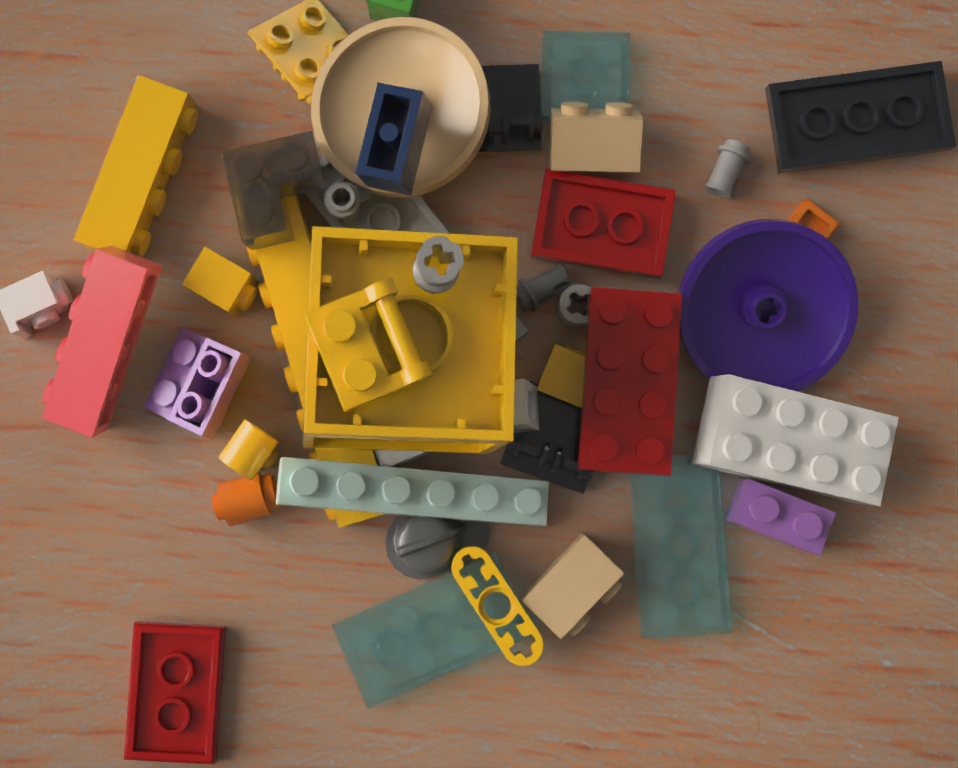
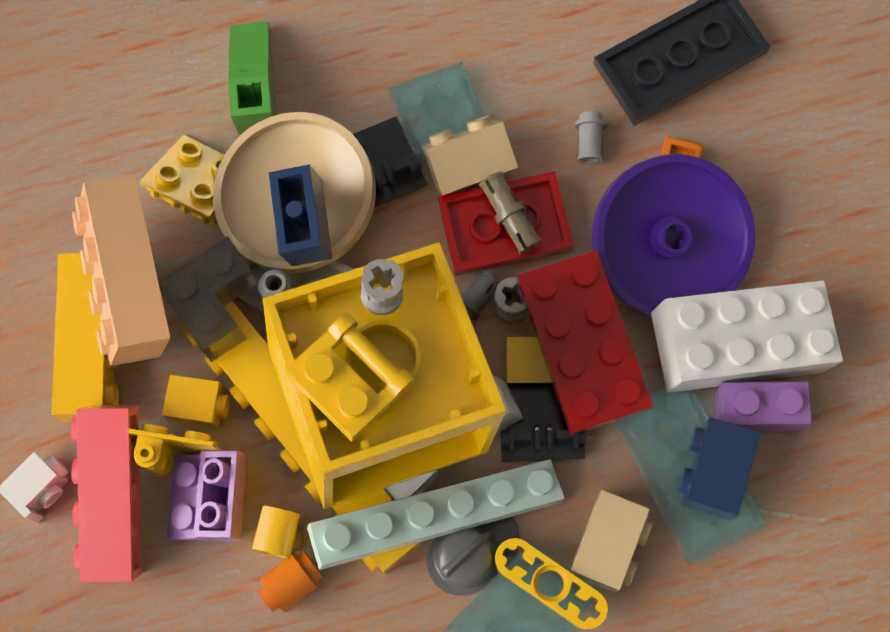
camera: 15 degrees left, 10 degrees down
(164, 316) = (157, 447): none -> yellow hinge
(194, 120) = (121, 270): none -> light nougat brick
(612, 217) = (510, 213): none -> dark tan pin
(709, 561) = (719, 468): none -> dark blue brick

